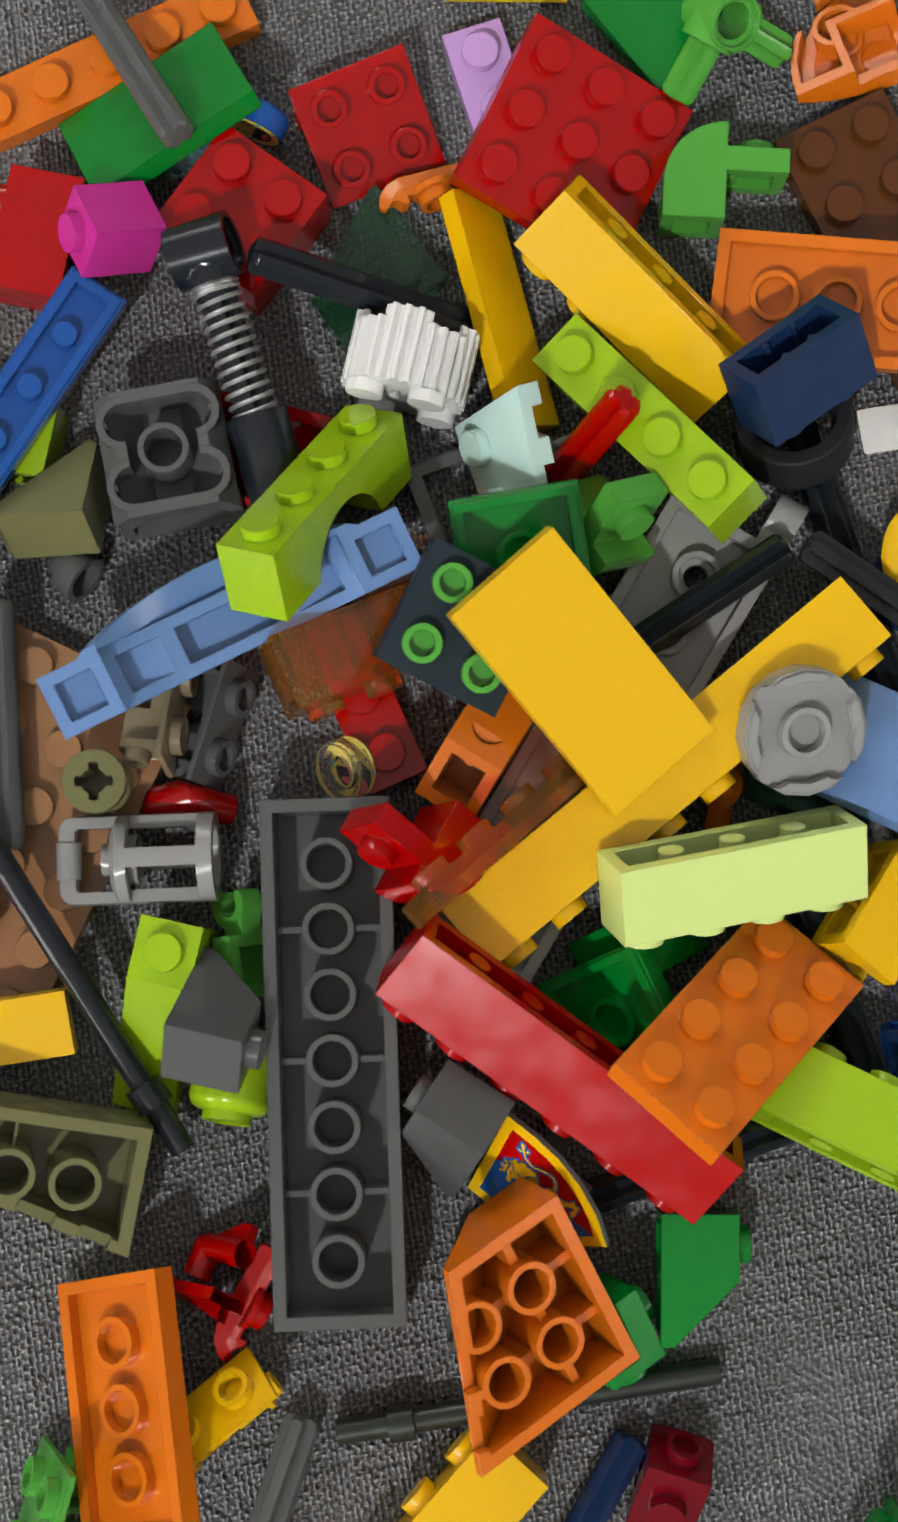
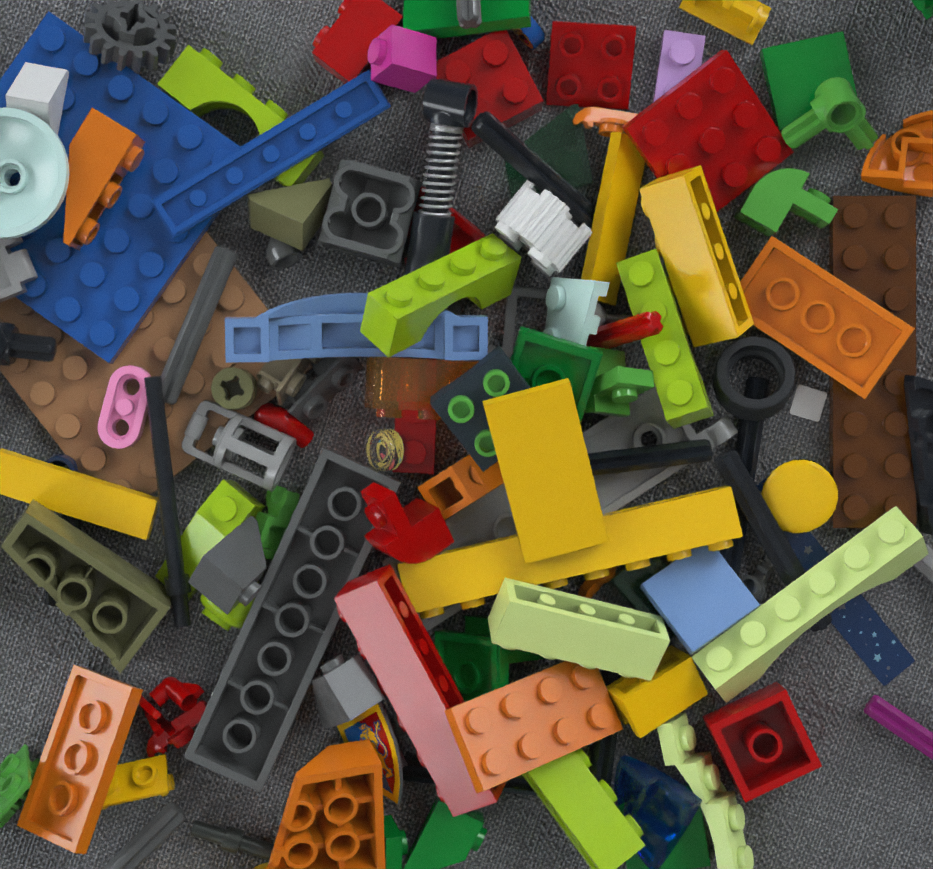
camera: 25 degrees right, 5 degrees up
(488, 843) = (442, 544): clear orange plate -> none
(798, 369) = (769, 351): dark blue brick -> none
(800, 729) = (660, 565): light grey tile -> none

